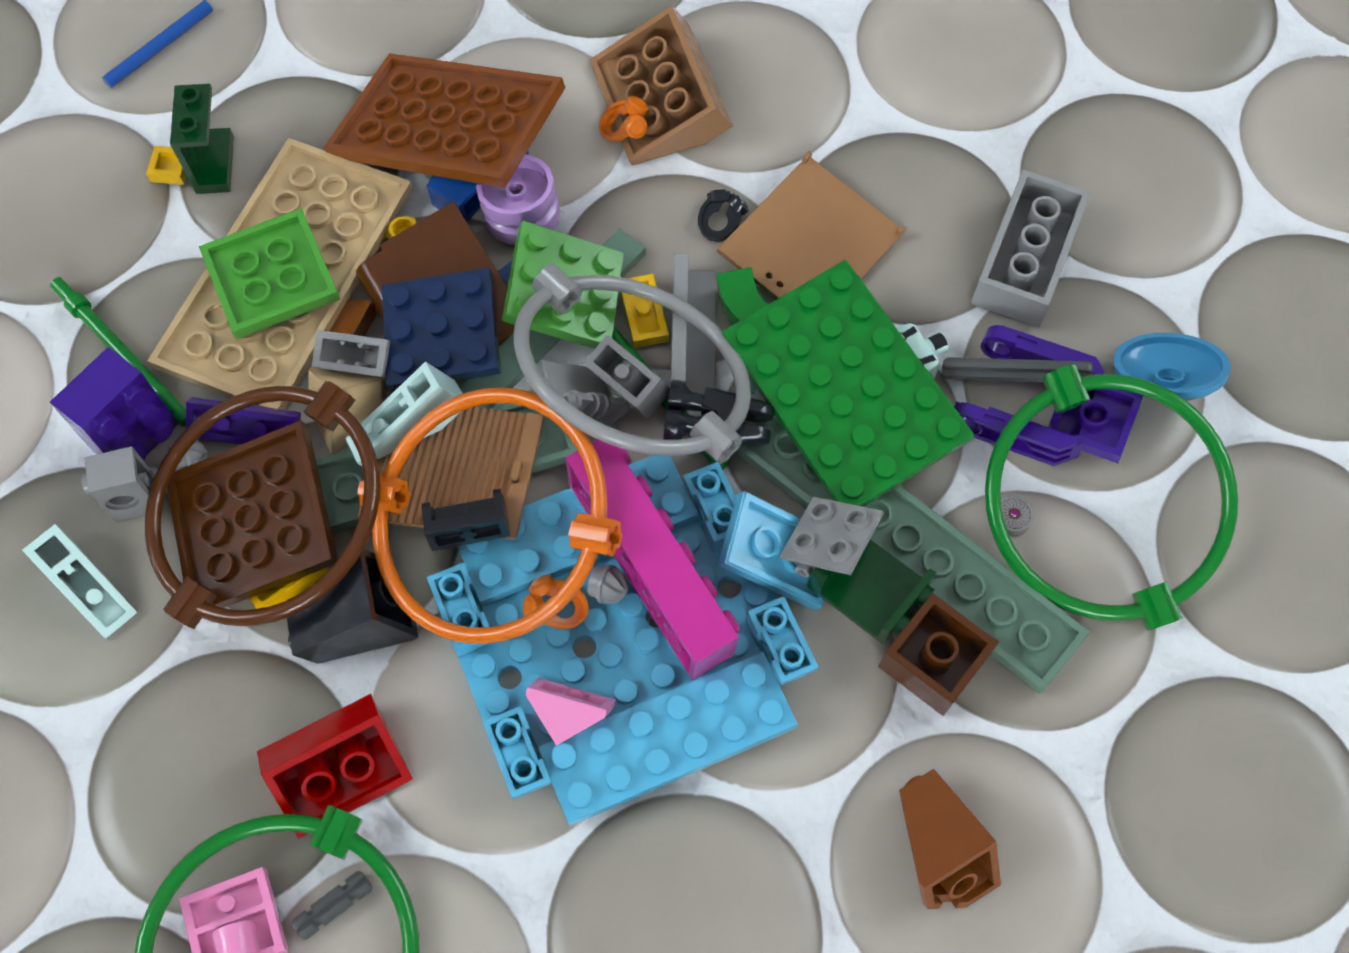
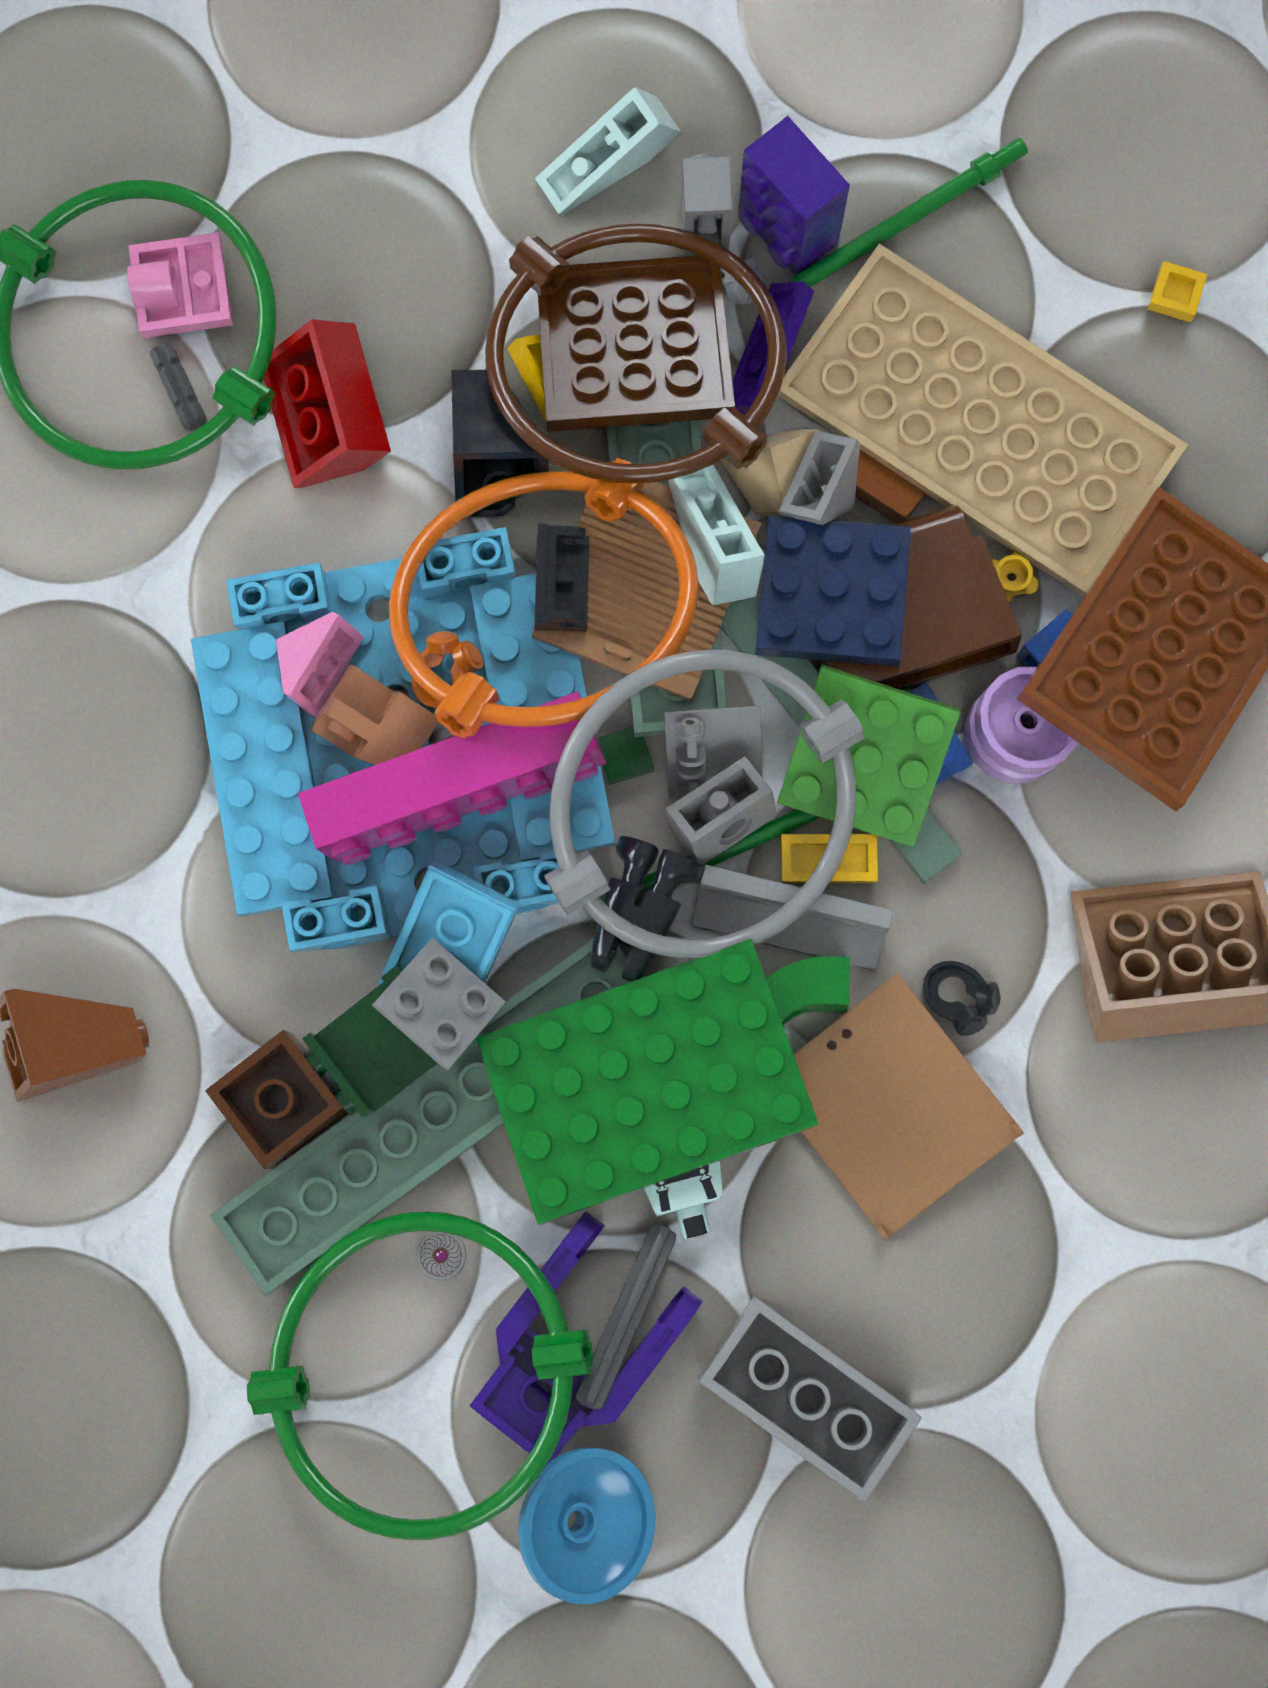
camera: 105 degrees right, 15 degrees up
(201, 151) = (1190, 329): dark green panel -> none
(269, 273) = (968, 396): bright green plate -> none
(613, 638) = (372, 719): none -> nougat brick
(634, 124) = (1141, 909): orange piece -> none

